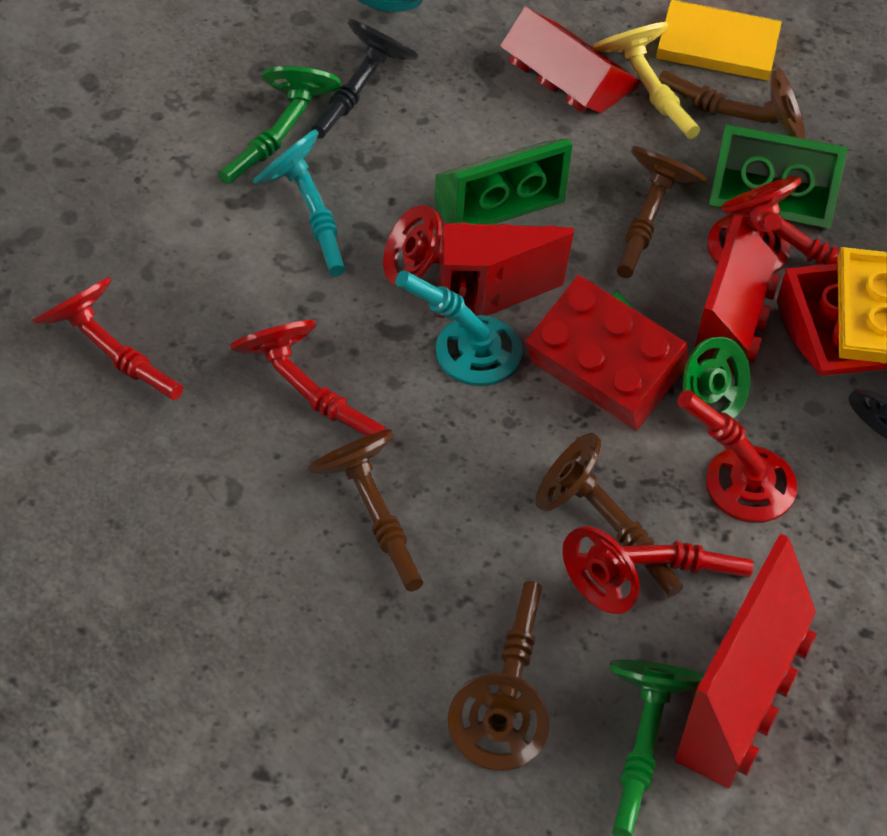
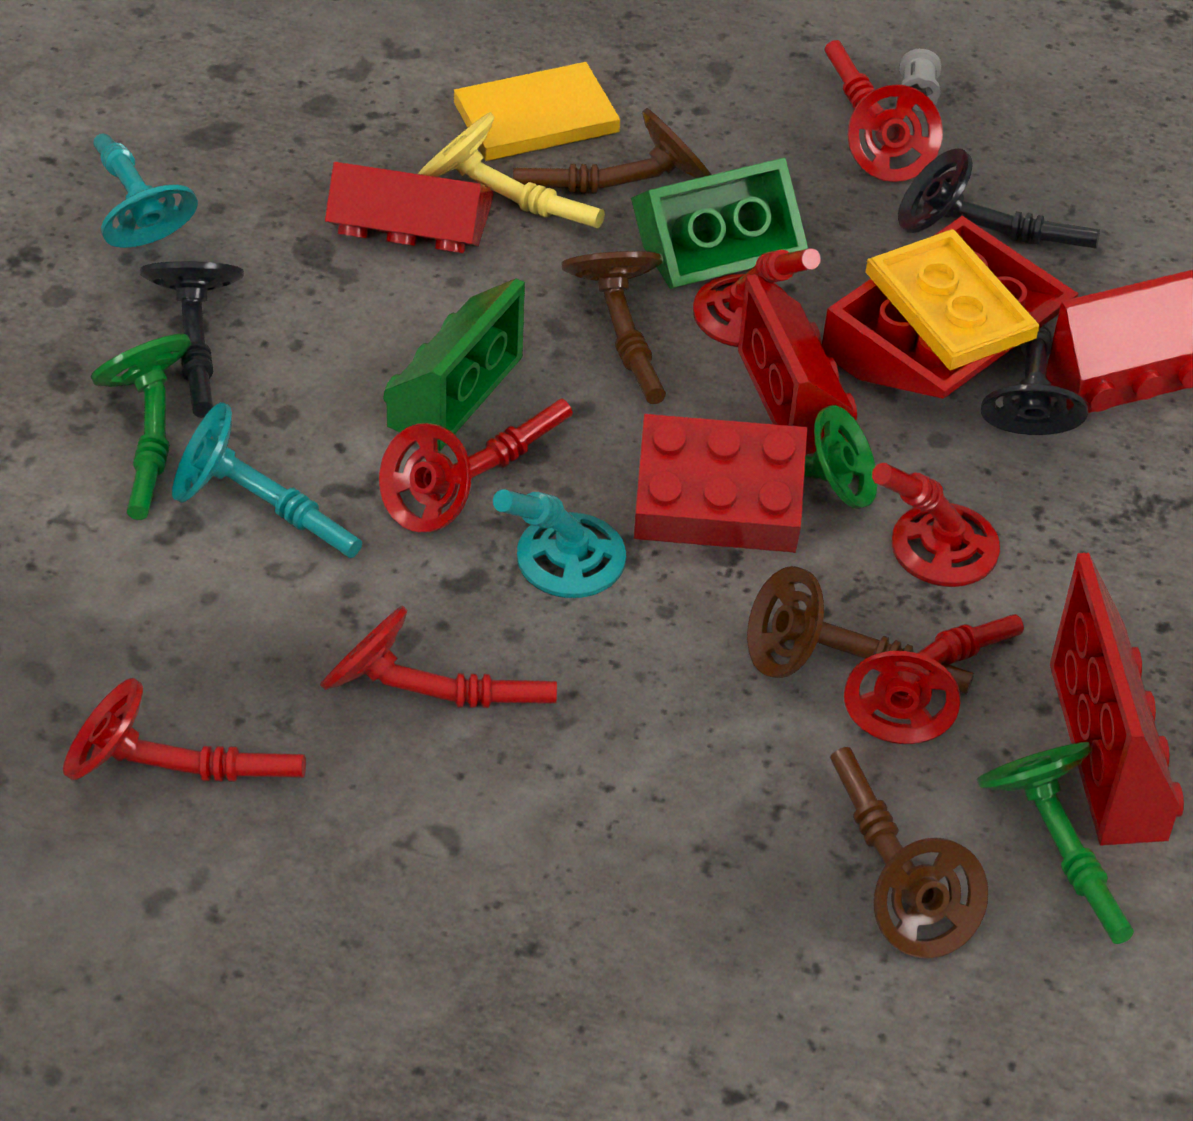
camera: 35 degrees left, 5 degrees down
(356, 463) = (567, 734): reddish brown dish -> none
(502, 263) = (533, 449): red slope -> none
(770, 196) = (743, 245): red dish -> none

